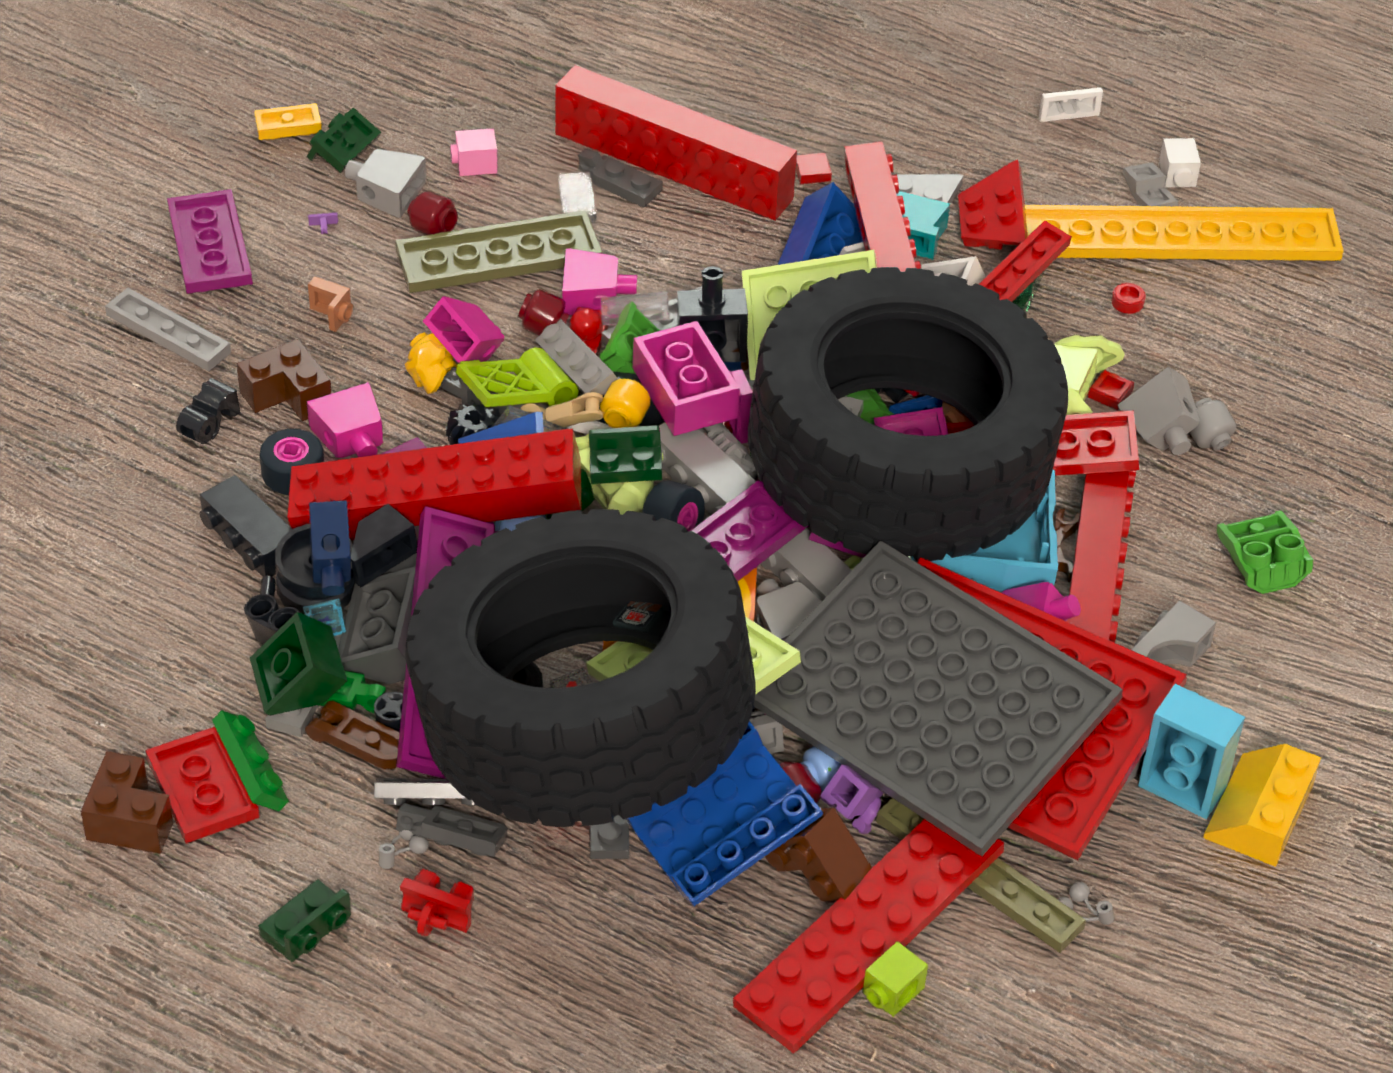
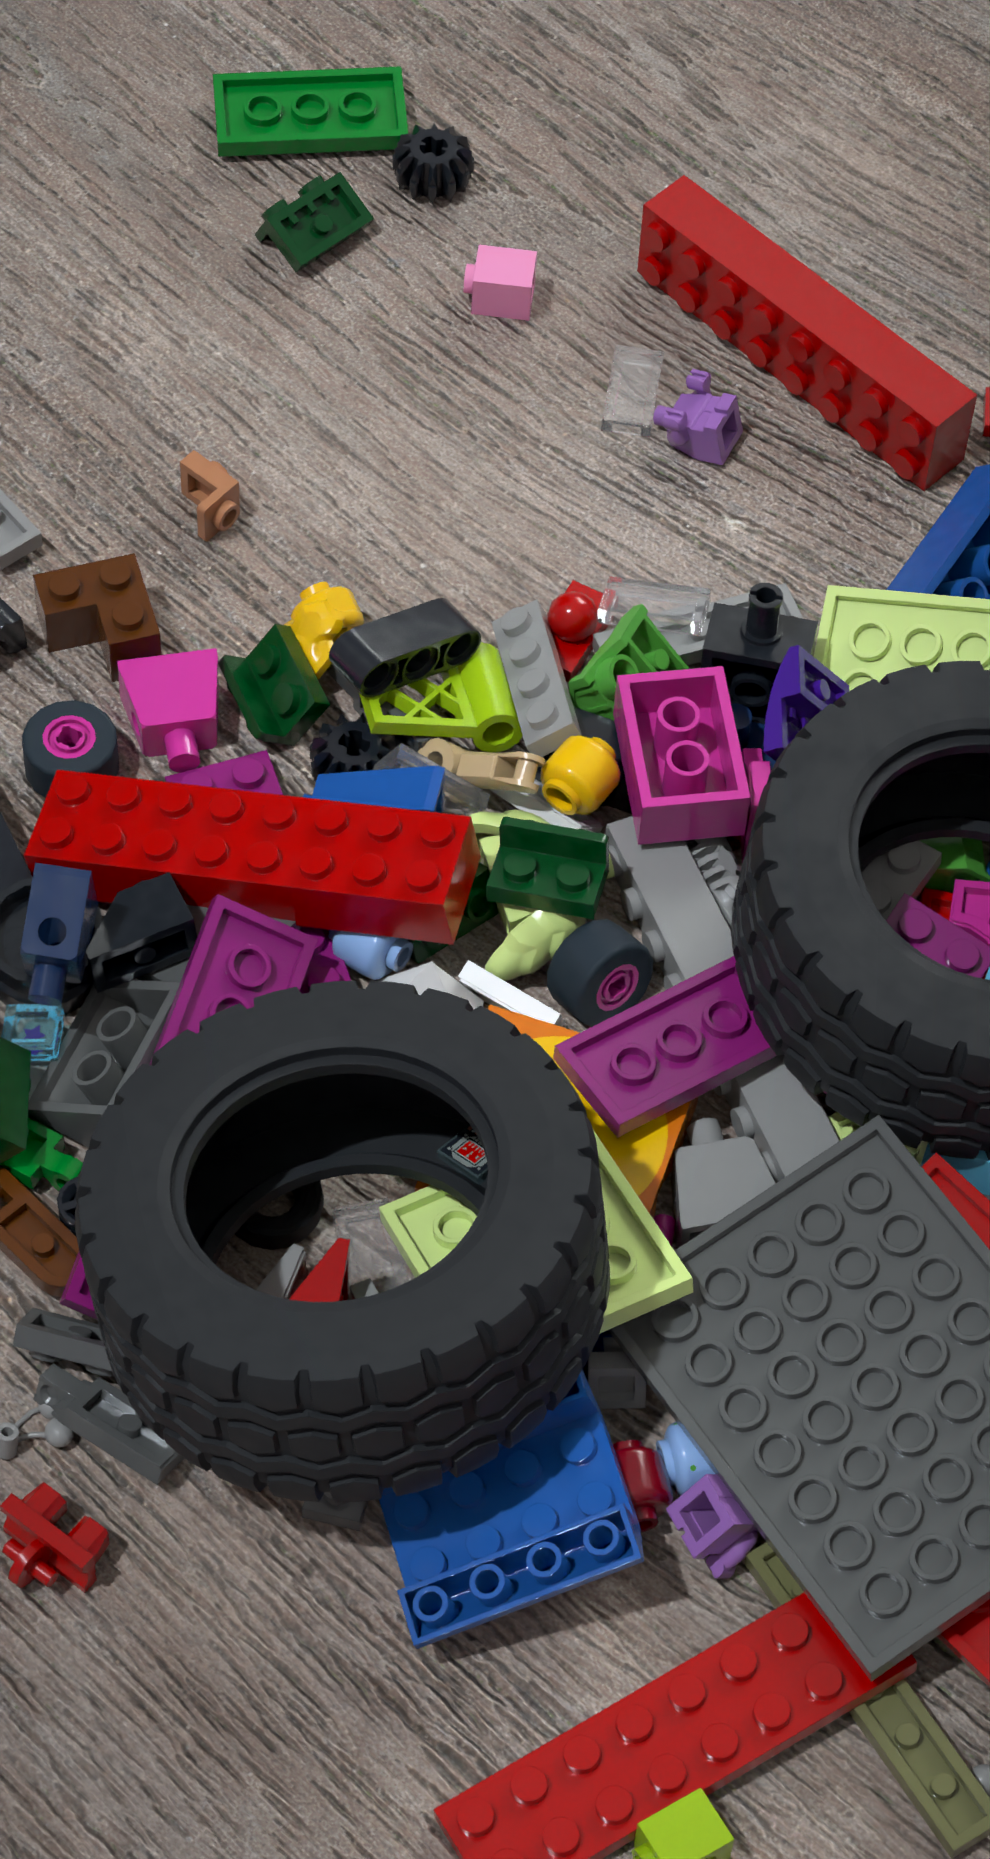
camera: 15 degrees right, 10 degrees up
(209, 241) = (66, 352): magenta plate -> none
(287, 121) = (243, 171): yellow plate -> none
(320, 79) = (309, 111): none -> green plate
(323, 220) = (244, 349): medium lavender piece -> none
(388, 179) = (359, 303): light grey torso -> none
(408, 95) = (433, 163): none -> black gear
(413, 399) = (275, 688): none -> dark green bracket
(432, 213) = (404, 377): dark red head -> none
(464, 330) = (378, 581): dark pink torso -> none
(491, 354) = (404, 647): none -> black beam
(494, 251) = (485, 459): olive plate -> none
(541, 311) = (515, 580): dark red head -> none
(592, 277) = (607, 539): torso -> none
(619, 178) = (692, 349): dark grey hinge -> none
(627, 206) = (702, 423): none -> medium lavender piece
(747, 334) = (798, 694): none -> dark purple slope
(825, 856) = (641, 1619): reddish brown brick -> none

